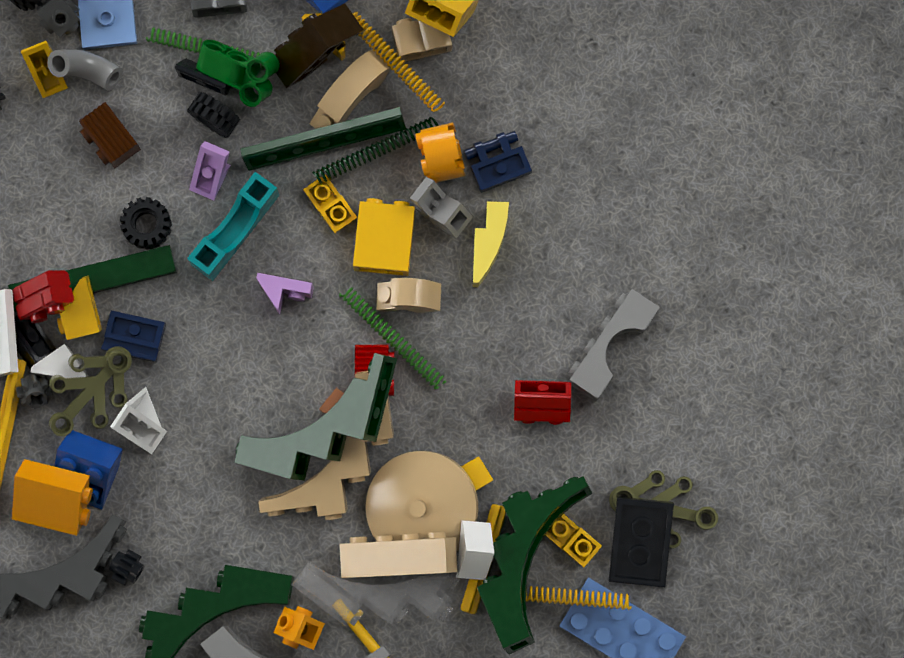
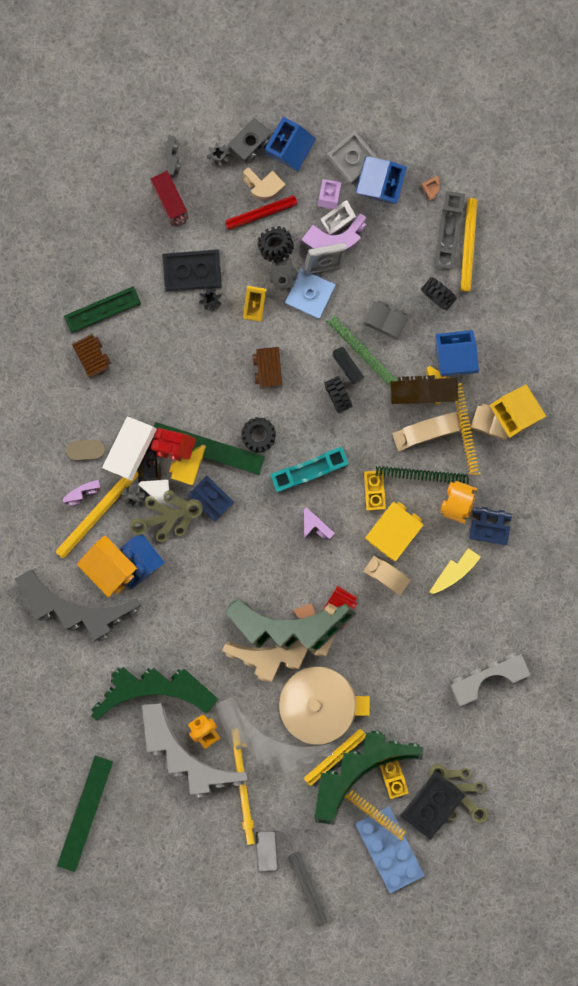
camera: 25 degrees right, 5 degrees up
(85, 66) = (280, 316): light grey cylinder -> none
(126, 567) = (125, 633): black gear -> none
(140, 422) = (184, 553): white slope -> none
(209, 170) = (315, 426): lavender slope -> none
(239, 70) = (369, 376): green piece -> none
(323, 139) = (394, 449): dark green tile -> none
(392, 341) = (357, 586): bright green piece -> none
(398, 557) = (286, 727): tan brick -> none
(440, 209) = (438, 535): light grey brick -> none
(475, 550) = (333, 750): white slope -> none
(542, 401) = (426, 687): red brick -> none

